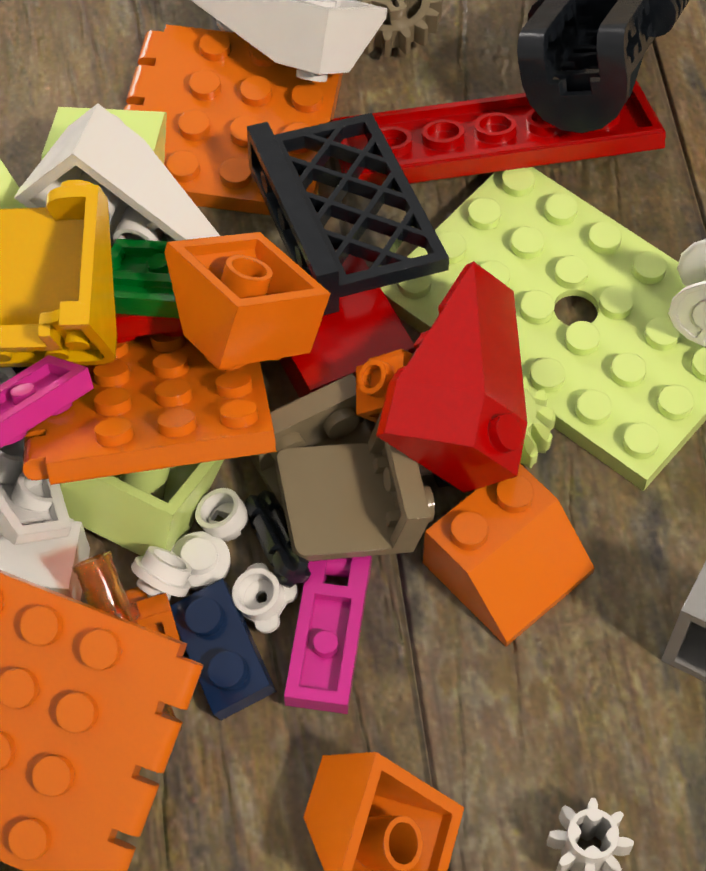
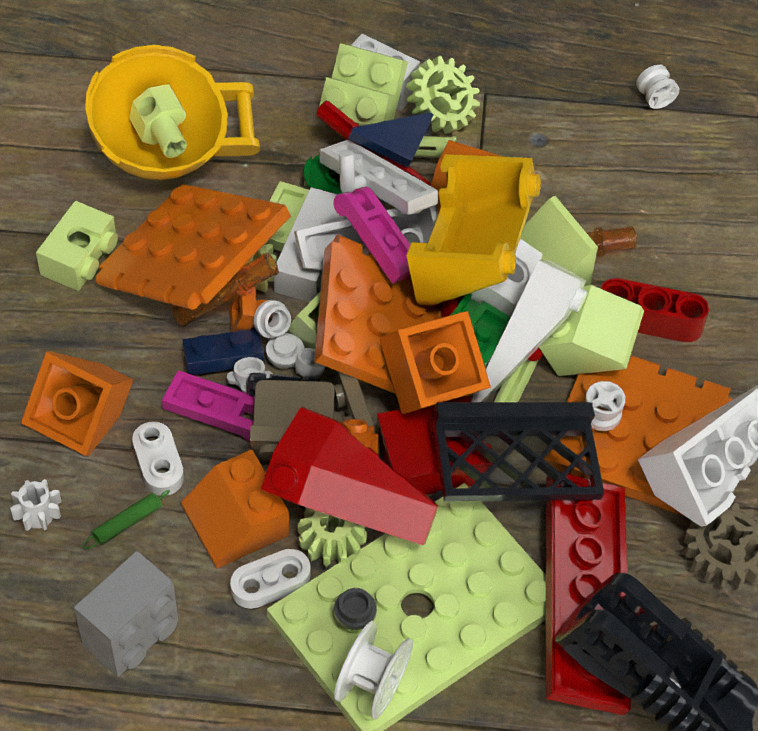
camera: 100 degrees right, 5 degrees down
(38, 91) = (666, 311): none -> red beam
(225, 133) = (606, 396): none -> white wheel
(443, 695) = (158, 455): none -> white plate
(559, 710) = (126, 518): none -> bright green piece
(603, 487) = (268, 577): none -> white plate
(627, 357) = (355, 608): none -> dark grey plate

